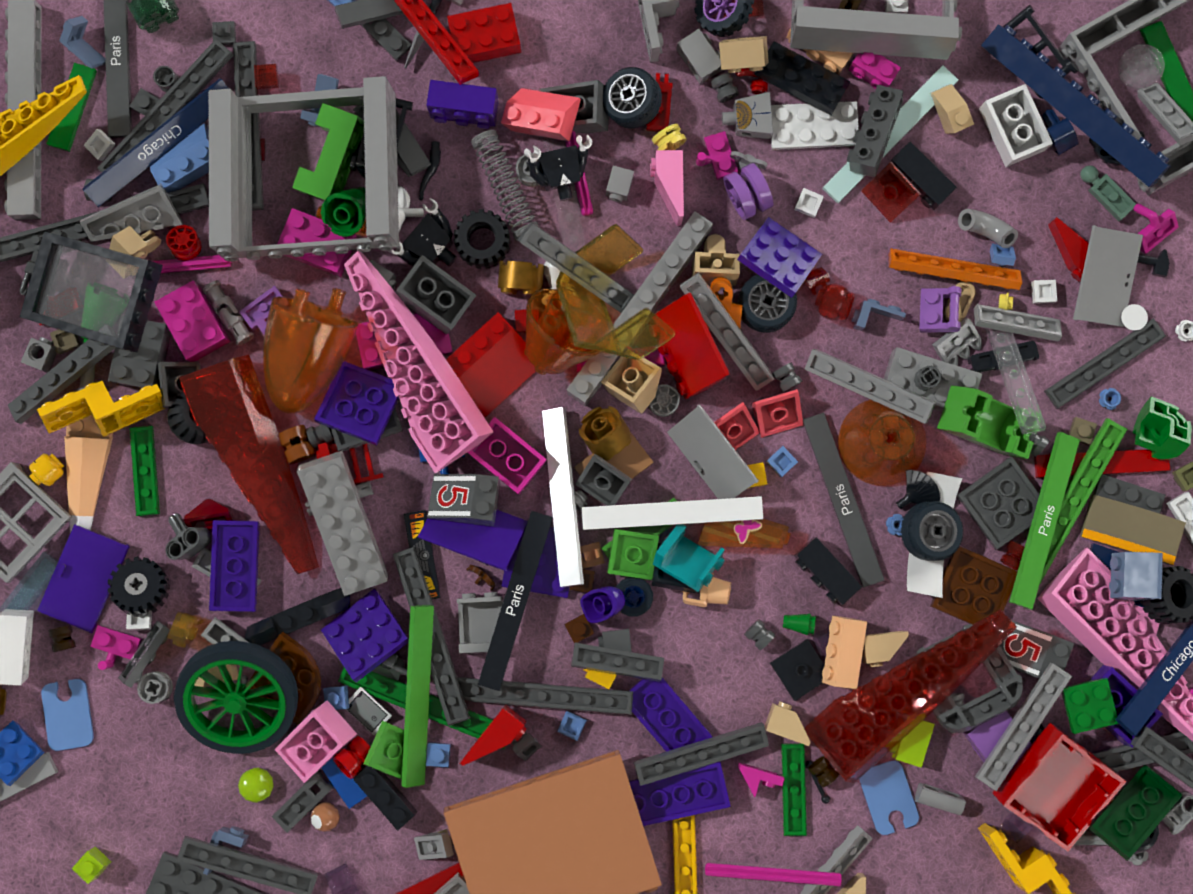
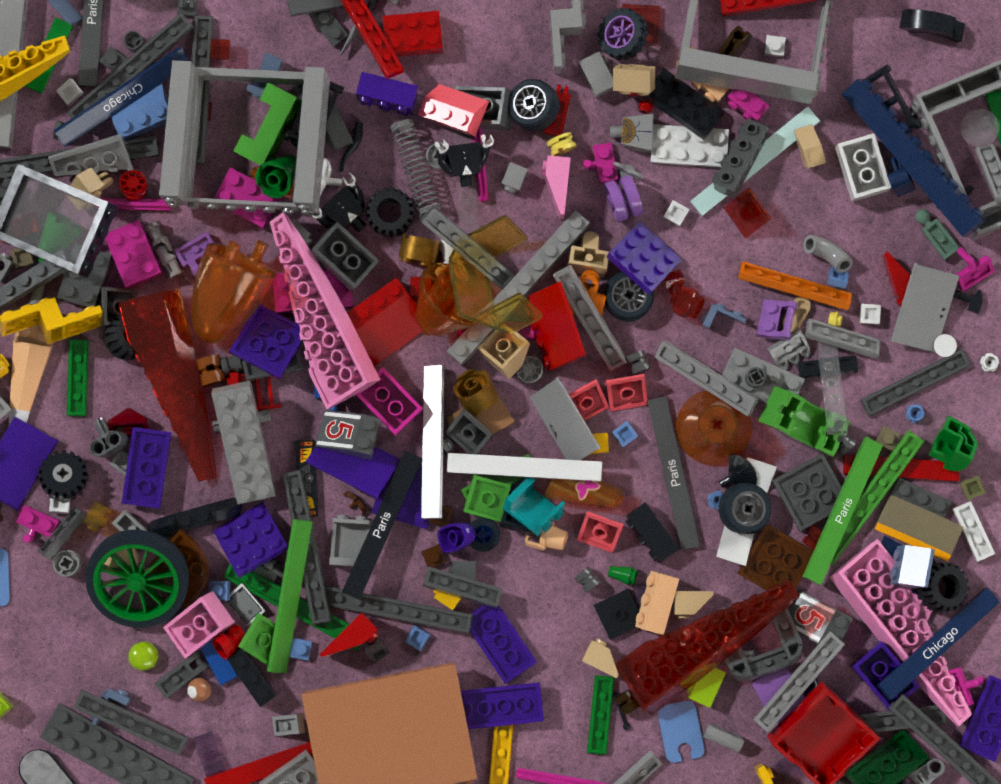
camera: 10 degrees right, 0 degrees up
(591, 555) = (451, 495): nougat tile -> none
(701, 753) = (524, 673): dark grey plate -> none
(724, 87) = (615, 104): dark grey wheel -> none
(753, 775) = (565, 699): dark pink slope -> none
(767, 577) = (599, 532): none -> coral slope
(923, 175) = (776, 201): black brick -> none
(1089, 705) = (857, 671): green plate -> none

